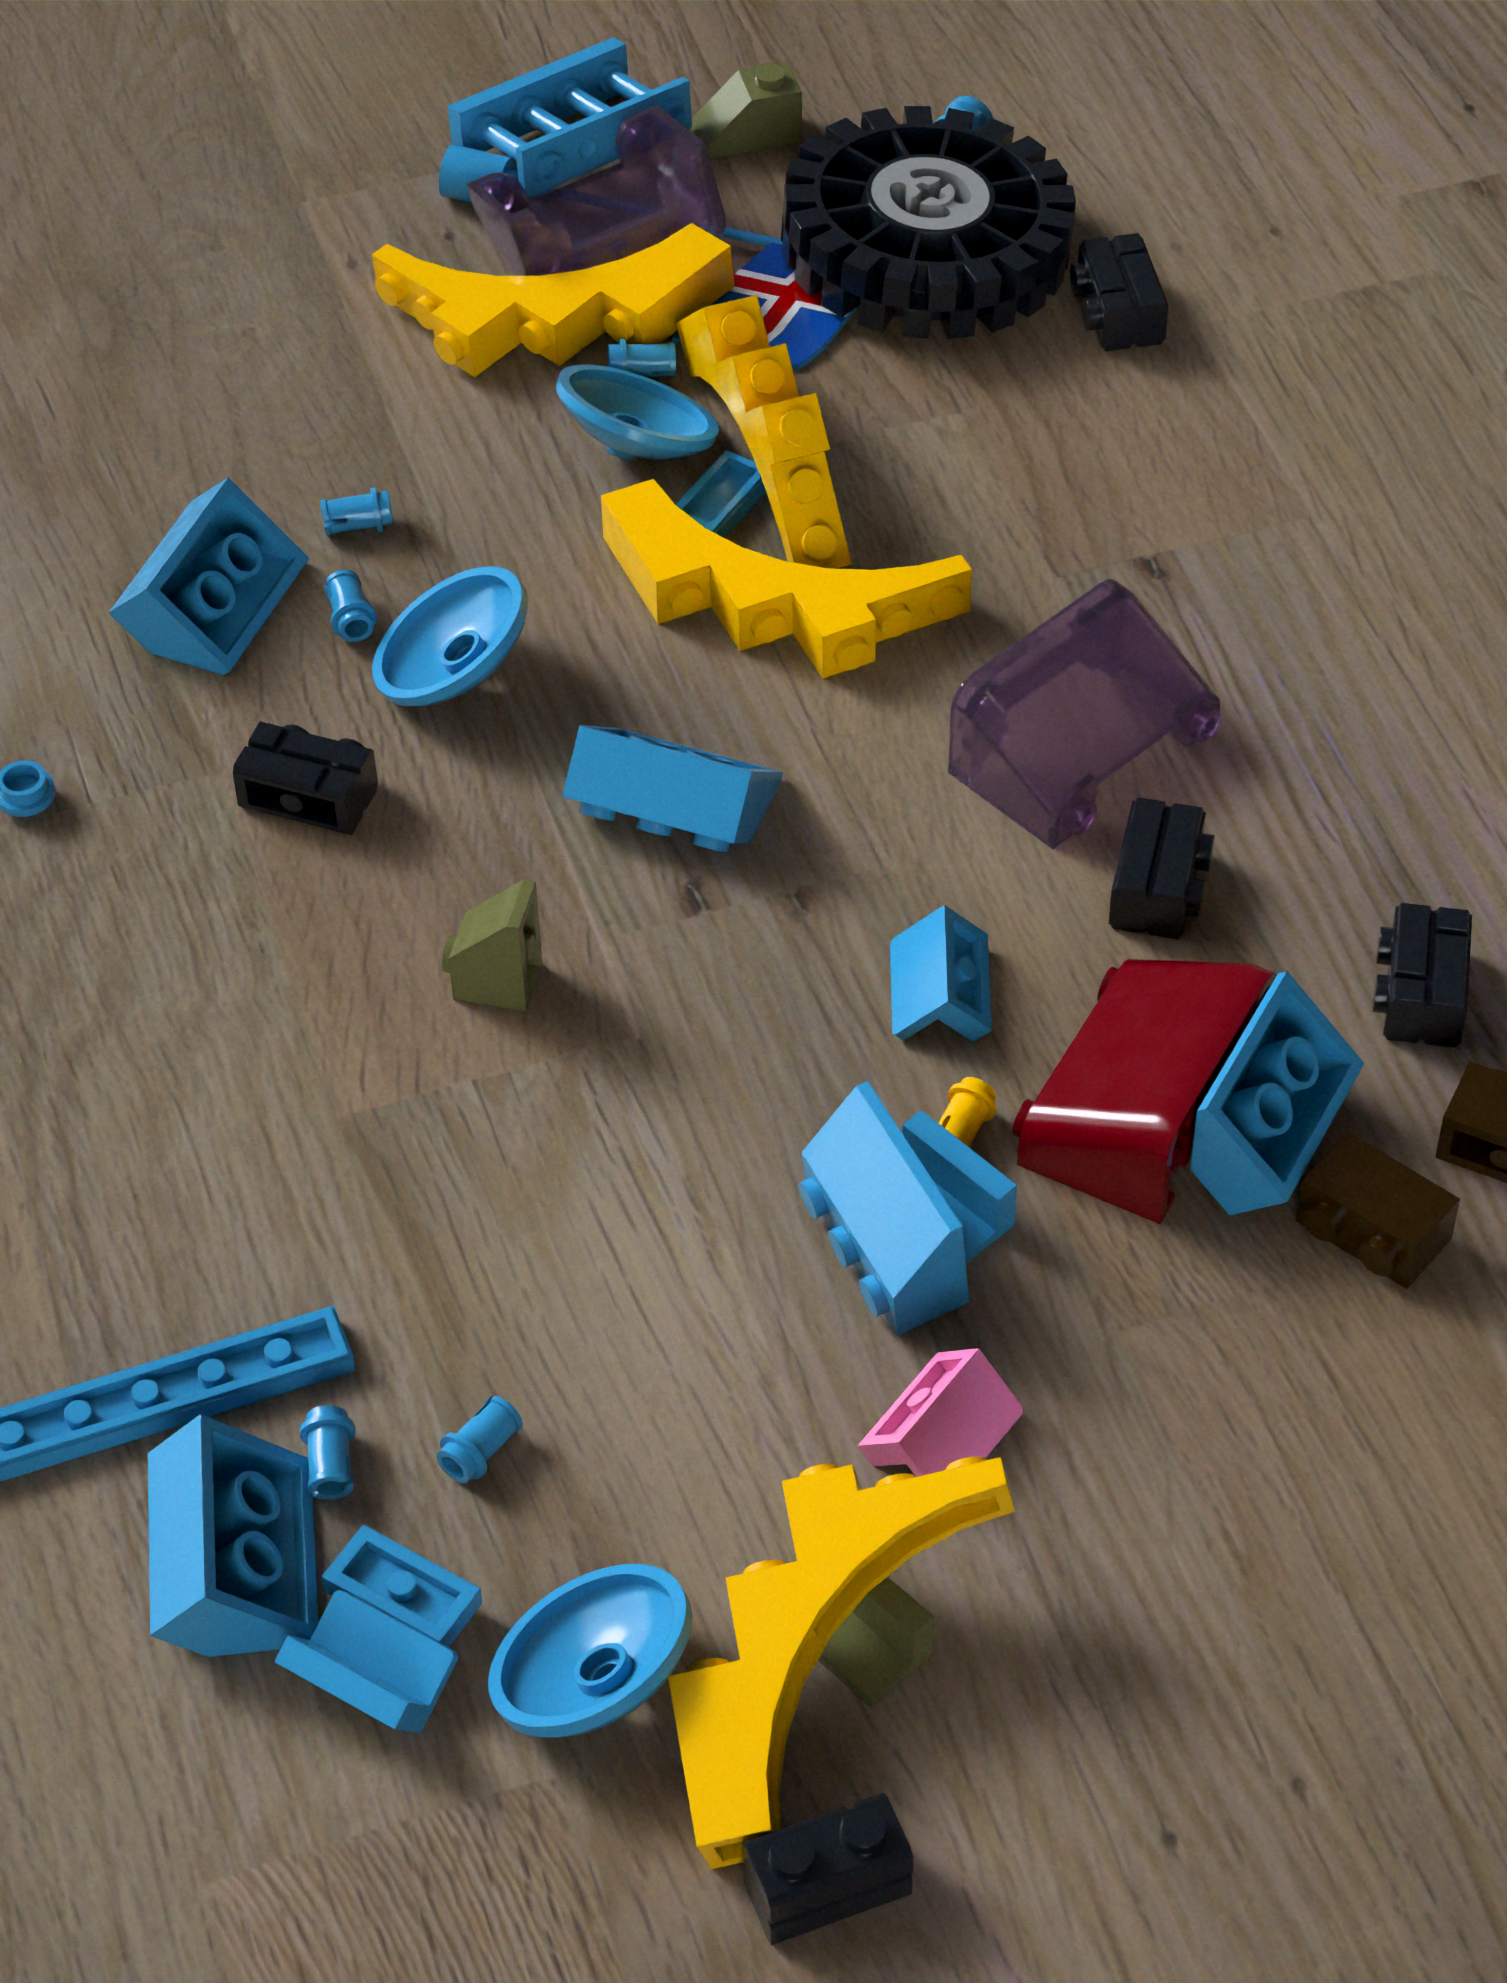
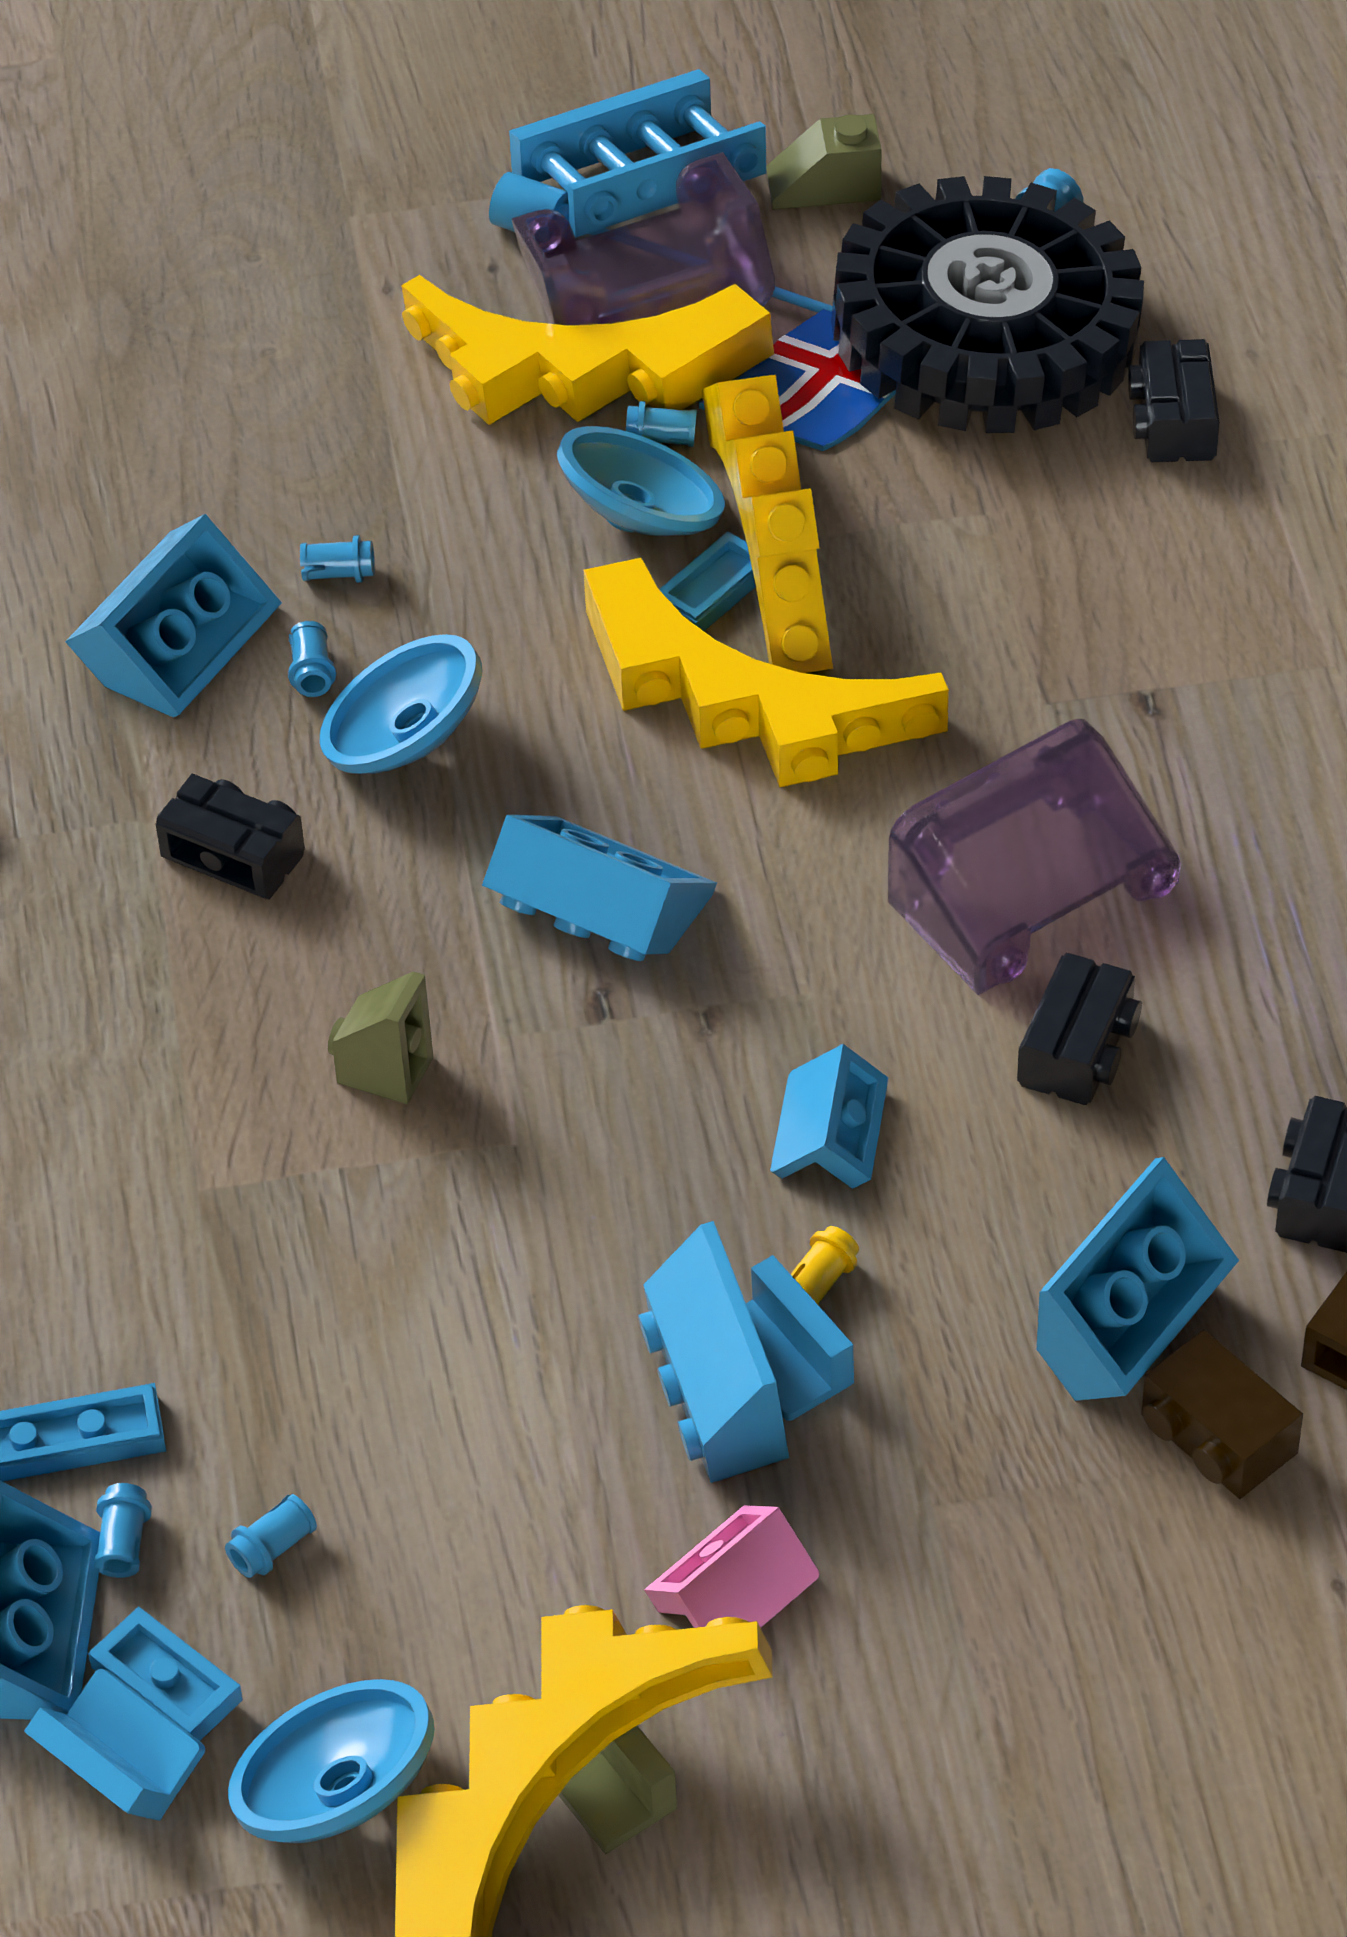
camera: 10 degrees right, 0 degrees up
(1134, 1077) = (976, 1266): dark red windscreen -> none

